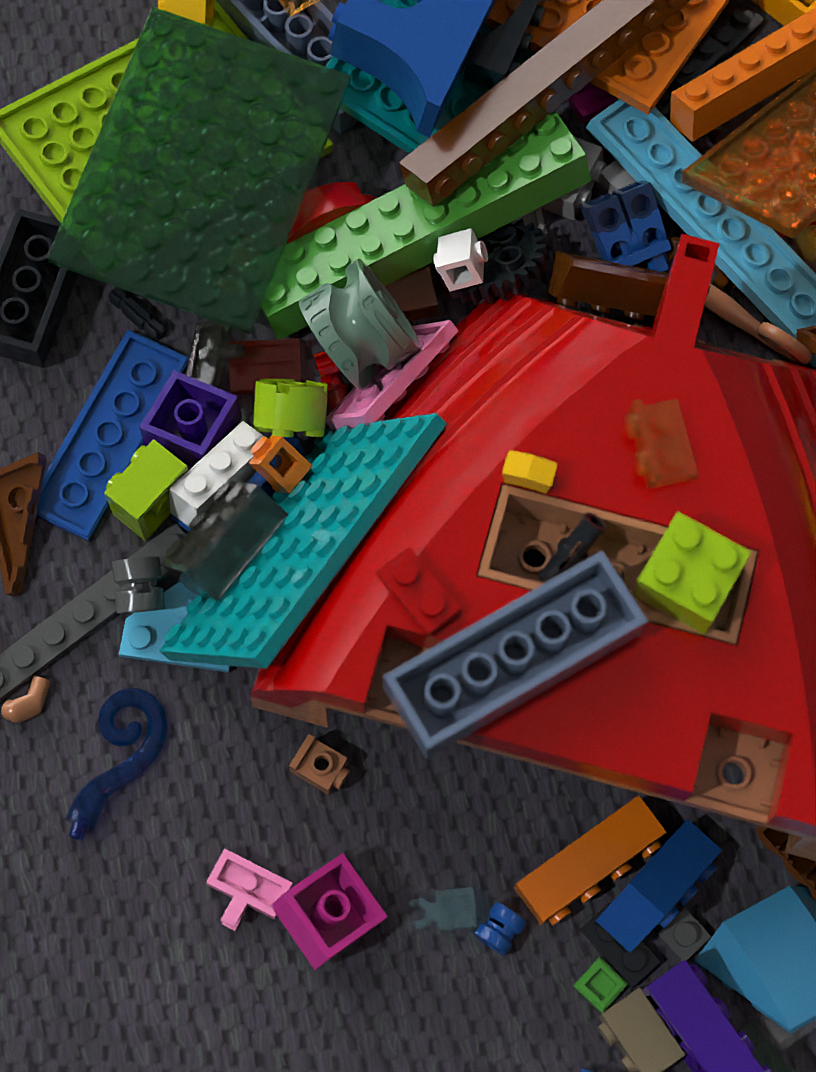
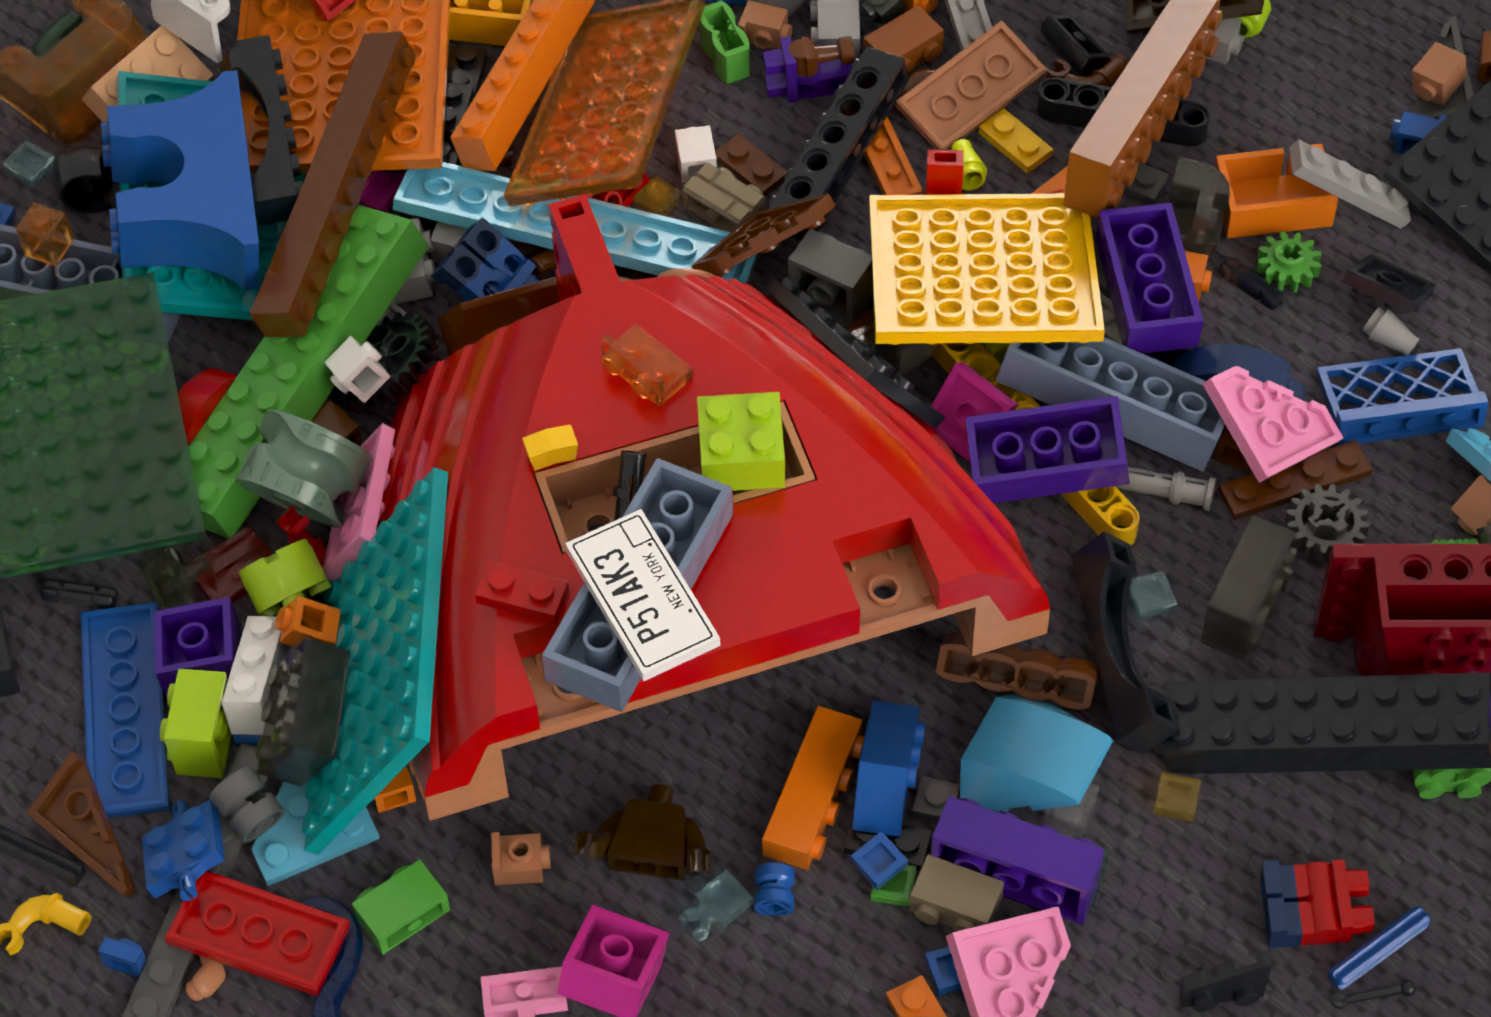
camera: 30 degrees left, 15 degrees down
(69, 590) = (183, 849): none -> blue plate
(82, 696) = (259, 932): none -> red tile
(203, 745) = (400, 906): none -> bright green brick
(431, 819) = (649, 839): none -> dark brown torso
(502, 677) = (642, 595): none -> white tile
(597, 964) = (879, 860): none -> blue plate

